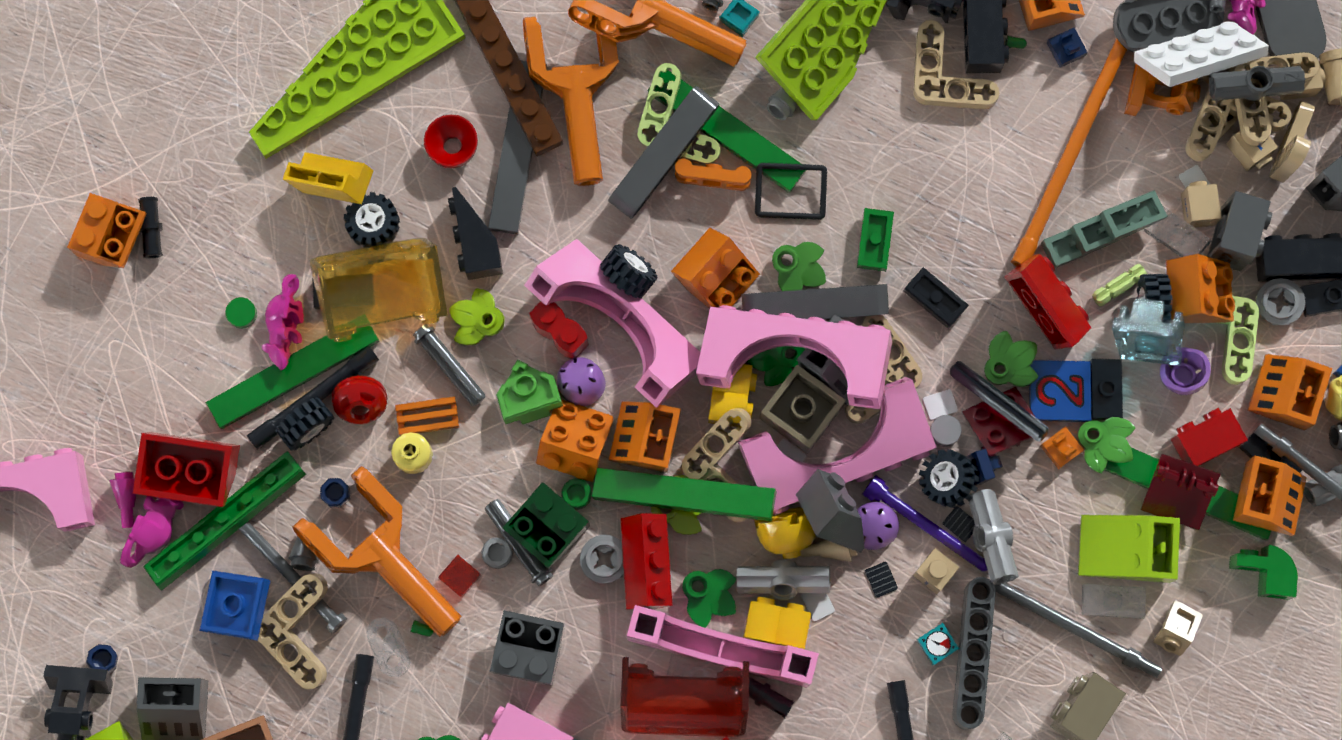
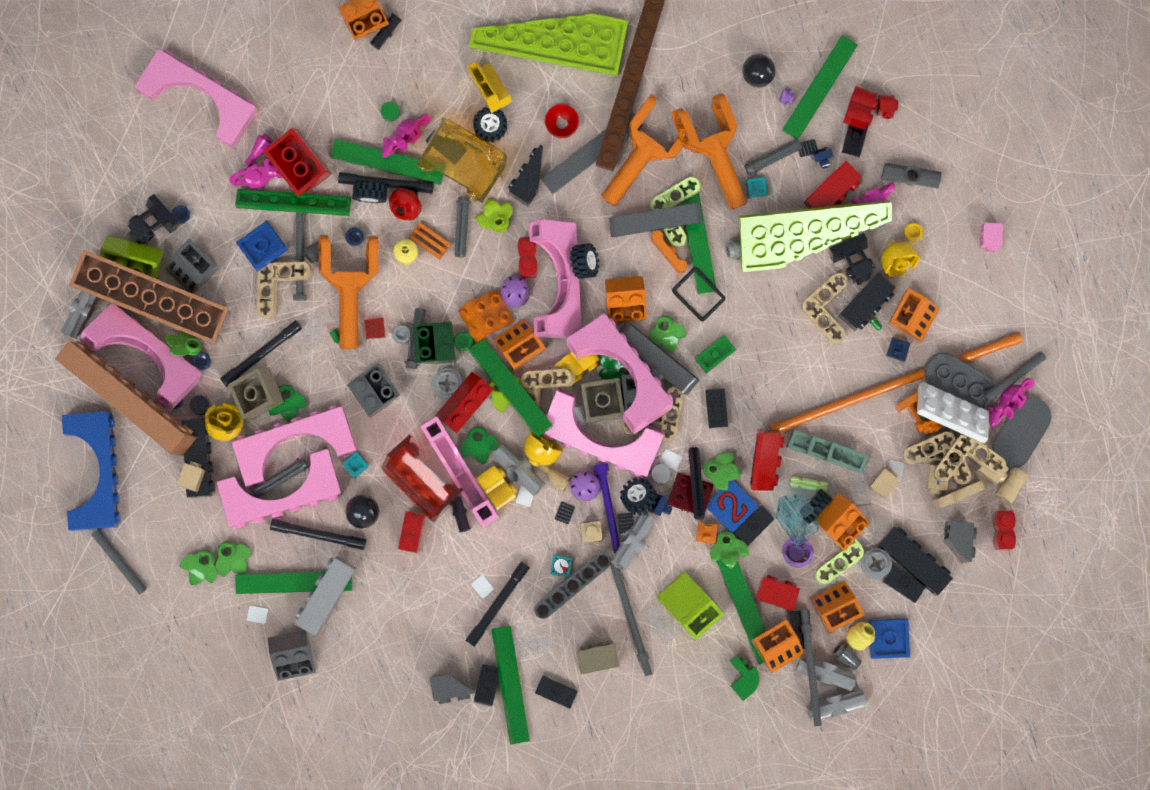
camera: 40 degrees right, 5 degrees up
(528, 395) = (484, 274): bright green plate -> none
(832, 510) = (568, 459): dark grey slope -> none
(1178, 628) = (677, 664): tan bracket -> none
(1180, 491) = (739, 604): dark red hinge -> none
(1240, 230) = (888, 511): dark grey brick -> none
(1273, 80) = (972, 458): dark grey piece -> none

